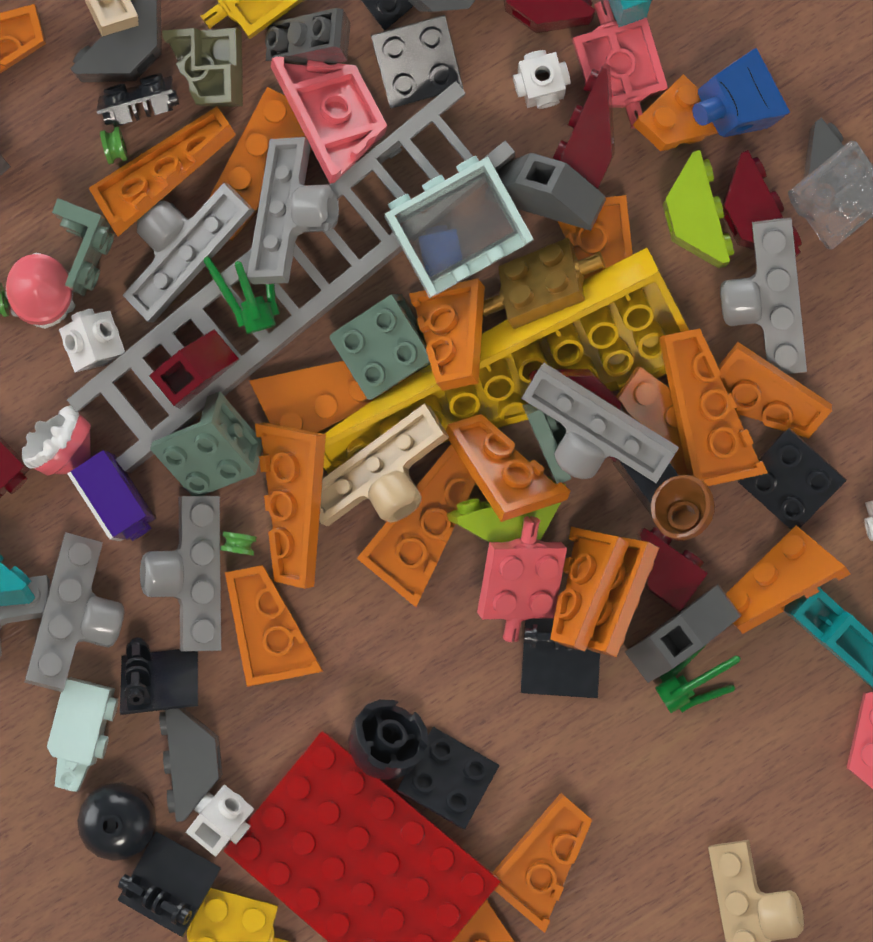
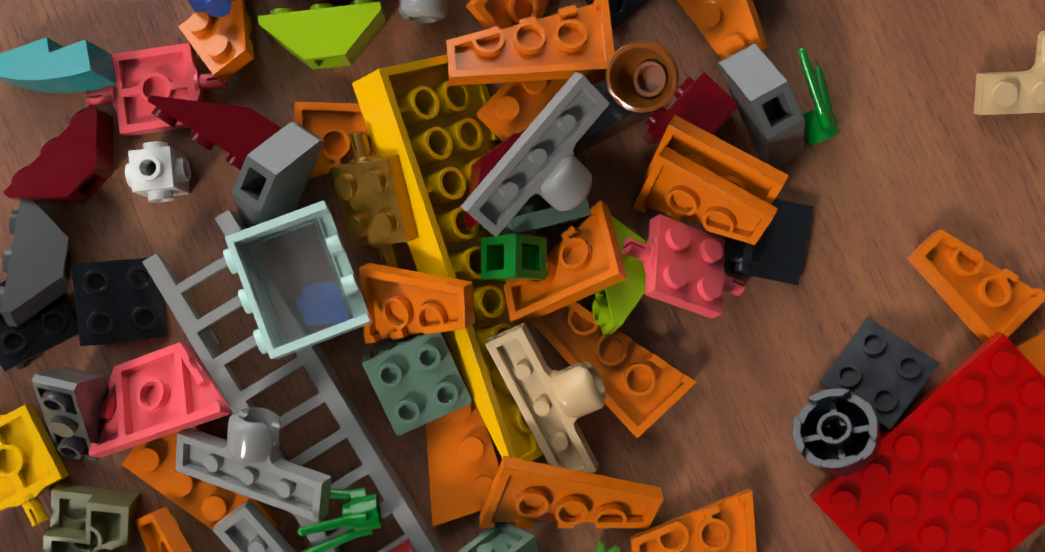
camera: 90 degrees left, 0 degrees up
(506, 418) = (513, 258): none -> green brick

